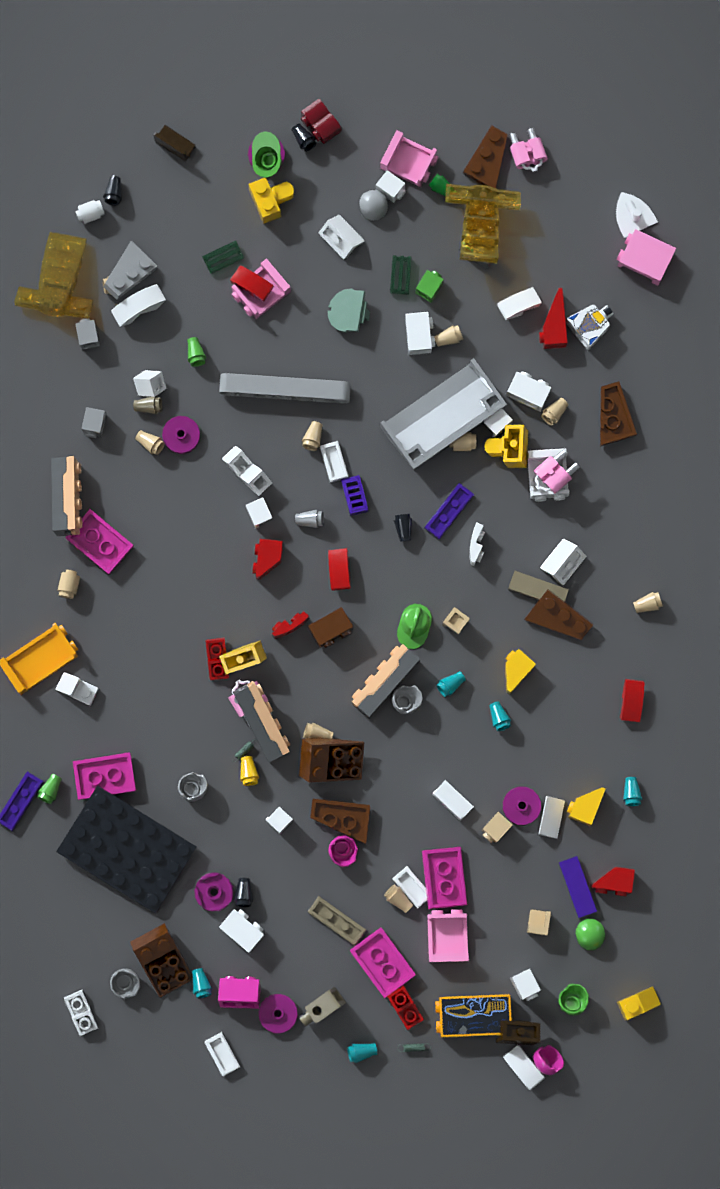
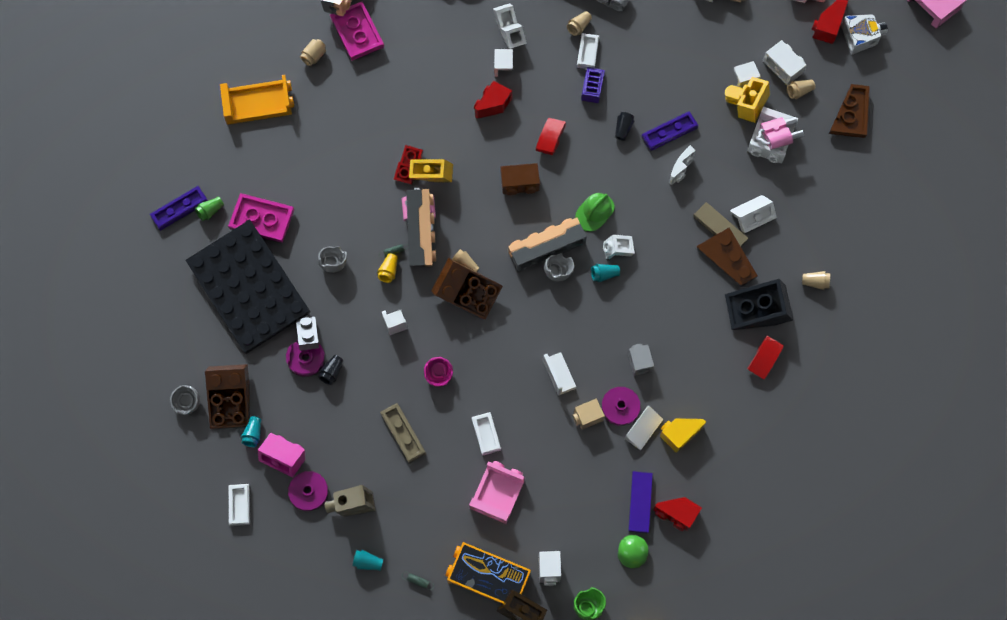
camera: 25 degrees right, 10 degrees down
(77, 688) = (277, 138): white slope -> none
(80, 1012) = (133, 409): white slope -> none
(205, 869) = (307, 333): none -> plate
(242, 930) = (312, 401): white brick -> none
(284, 628) = (478, 163): red slope -> none
(310, 519) = (546, 86): light grey cone -> none
(344, 817) = (452, 343): reddish brown wing -> none
(382, 962) = (426, 488): dark pink plate -> none
(398, 898) = (468, 437): tan cone -> none
(405, 1007) = (427, 539): red slope -> none
(443, 415) = (701, 49): light grey slope -> none
(444, 877) = (519, 438): dark pink tile -> none
(452, 652) = (618, 245): none -> white bracket
(456, 621) = (634, 219): tan panel -> none
(464, 443) = (708, 78): tan brick -> none
(499, 717) = (635, 320): teal cone -> none
(516, 669) = (671, 285): yellow slope -> none
(520, 754) = (640, 359): none -> light grey brick
(539, 922) = (588, 518): tan panel -> none
(606, 653) = (759, 306): none -> black slope
(632, 793) = (729, 439): teal cone -> none

